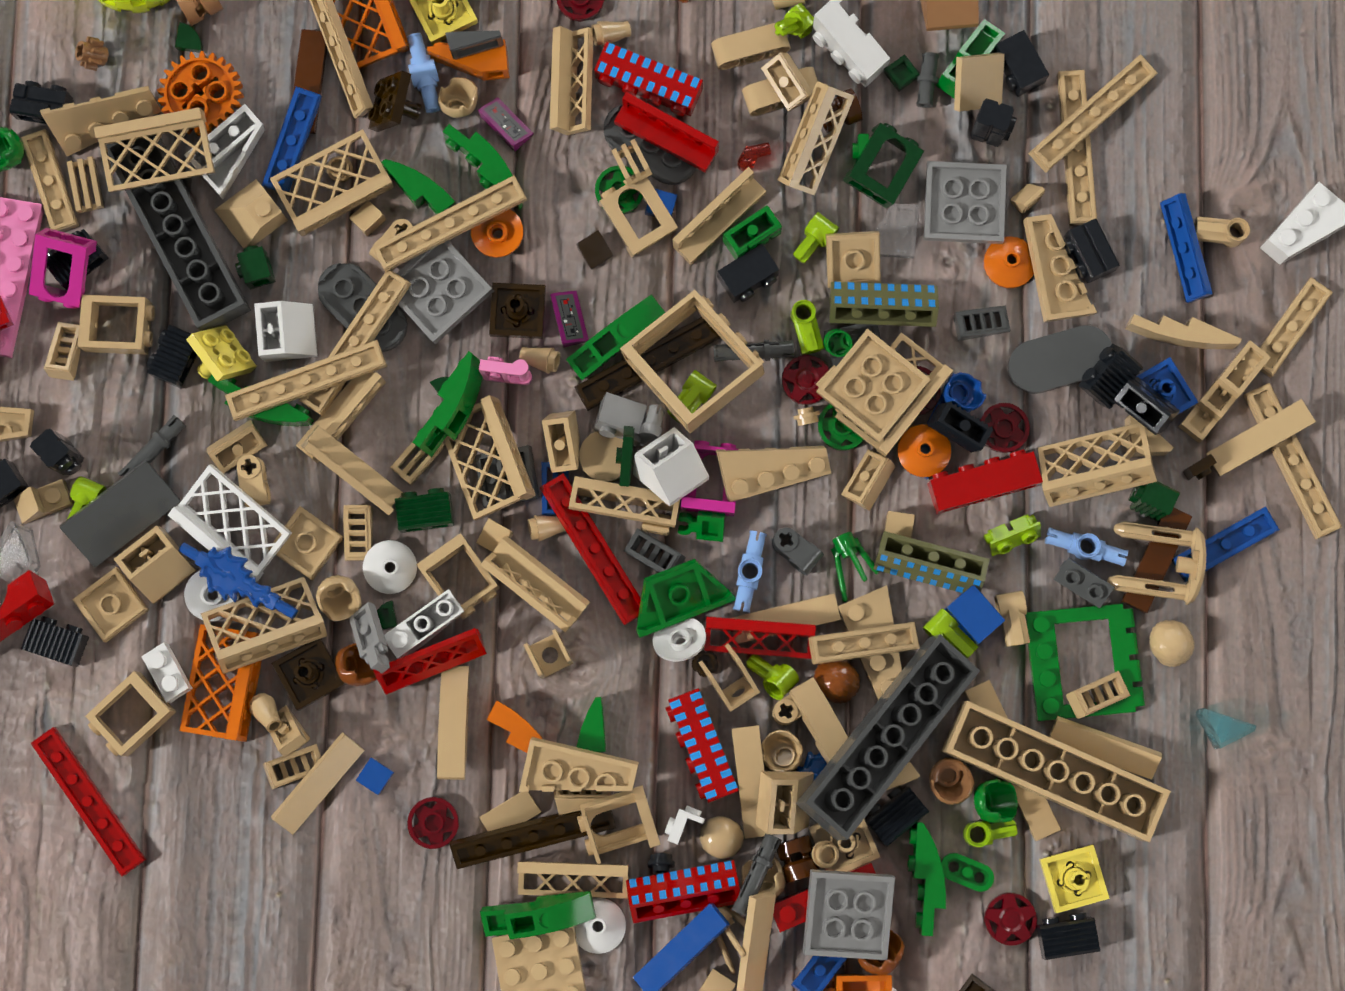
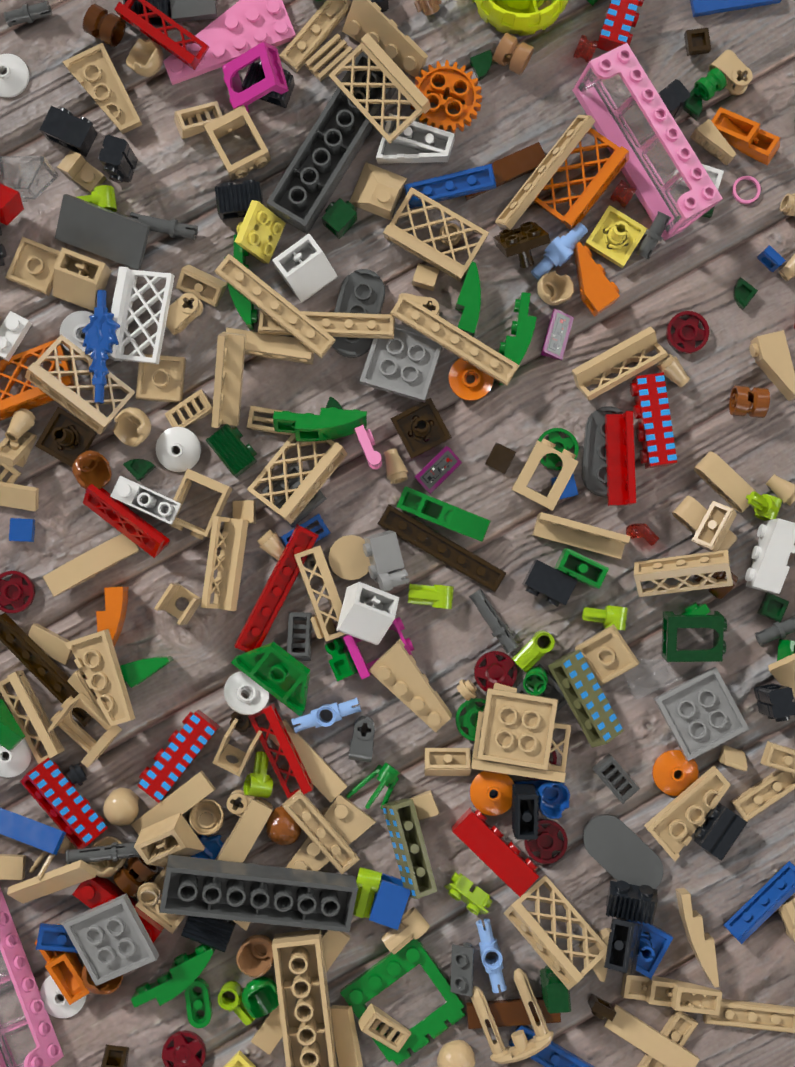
camera: 55 degrees right, 5 degrees up
(370, 637) = (113, 467): light grey hinge -> none
(472, 42) = (600, 271): dark grey slope -> none
(562, 440) = (342, 519): tan slope -> none
(624, 456) = (355, 574): dark green plate -> none
(626, 151) = (588, 437): tan tile -> none
(659, 328) = (497, 585): tan window -> none
(676, 826) = (118, 774): white bracket -> none

